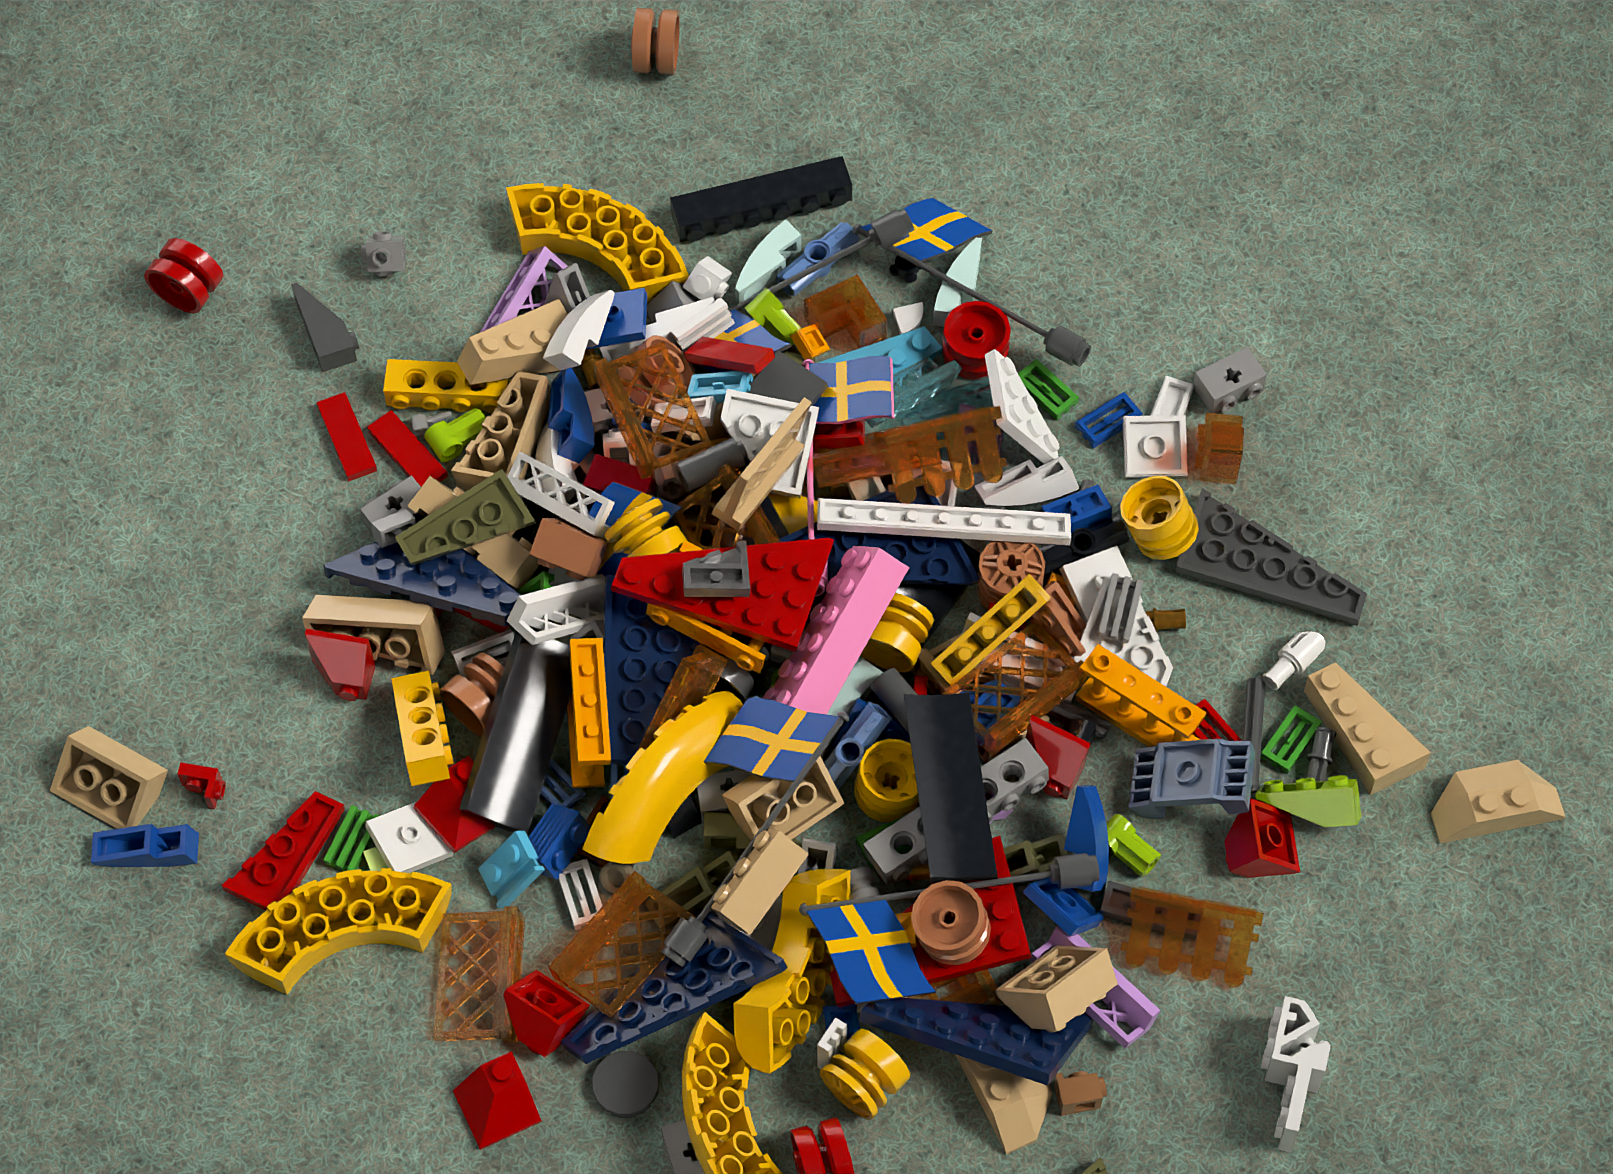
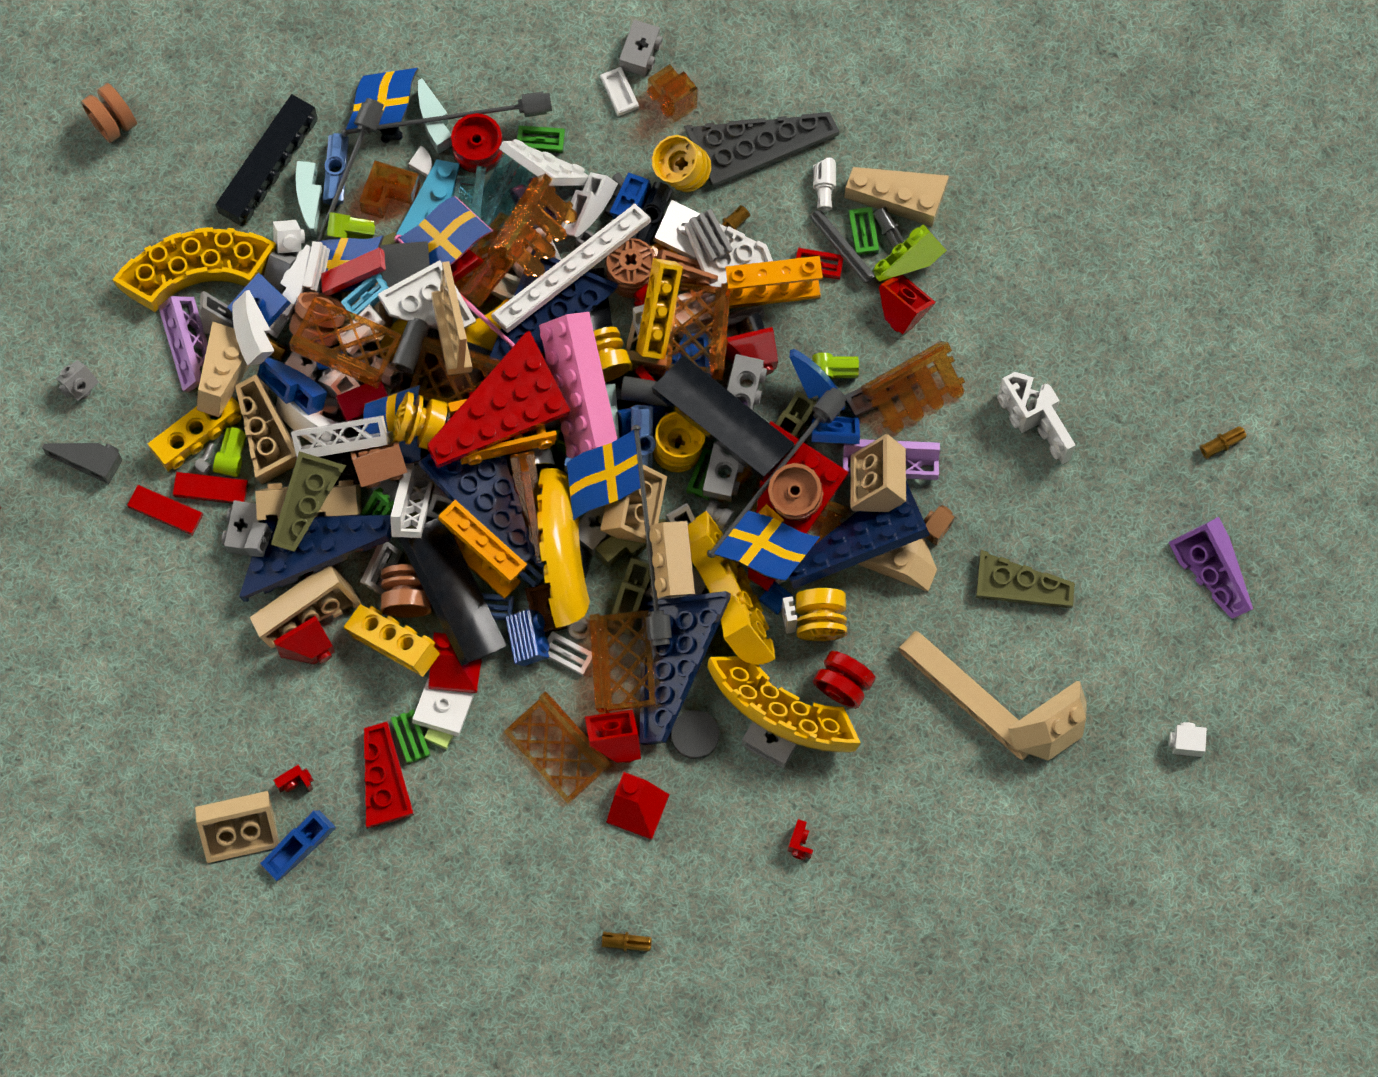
camera: 45 degrees left, 10 degrees up
(335, 916) = (447, 785): yellow brick -> none
(511, 869) = (520, 673): medium azure plate -> none
(718, 574) = (493, 406): flat silver wing -> none
(810, 342) = (384, 224): light orange tile -> none
(1081, 425) = (589, 146): blue tile -> none
(1155, 446) = (635, 122): white plate -> none
(1192, 775) = (837, 298): sand blue plate -> none
(1494, 801) = (1000, 174): tan wedge -> none

